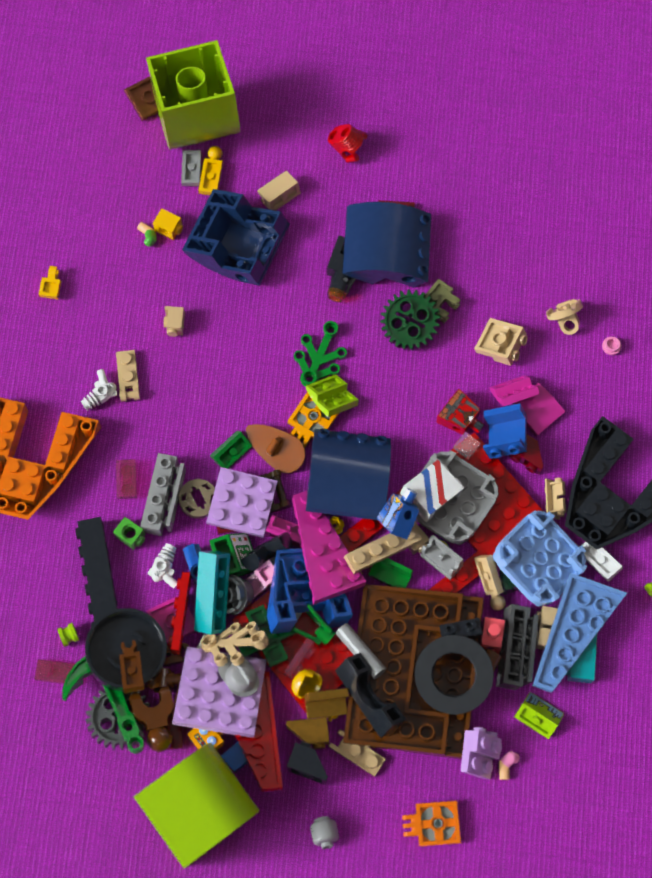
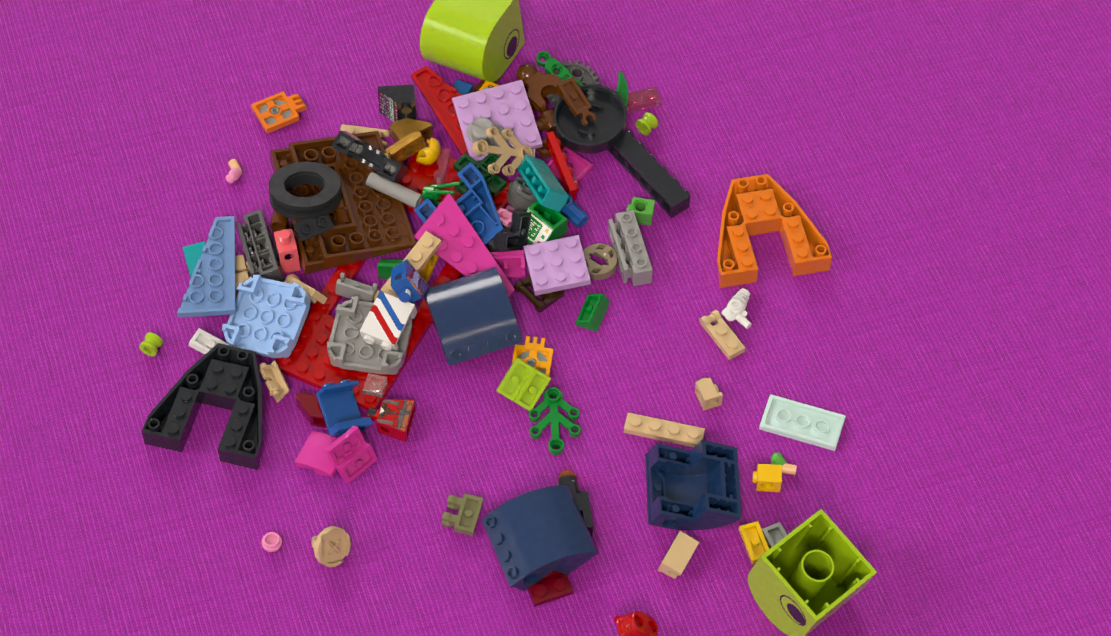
camera: 155 degrees right, 15 degrees down
(51, 285) = (843, 378): yellow plate -> none
(108, 265) = (802, 422): none -> light aqua tile
(126, 479) = (670, 251): clear pink plate -> none
(142, 98) = (871, 601): copper plate -> none
(162, 566) = (598, 199): white piece -> none
(229, 307) = (663, 430): none -> tan plate
(277, 447) = (552, 327): dark orange shield -> none
(324, 832) = (363, 73): light grey head -> none
(418, 305) = (481, 480): dark green gear -> none
(479, 751) = (260, 162): lavender plate -> none
(501, 341) = (383, 497): tan plate -> none
(539, 715) = (210, 210): lime panel -> none

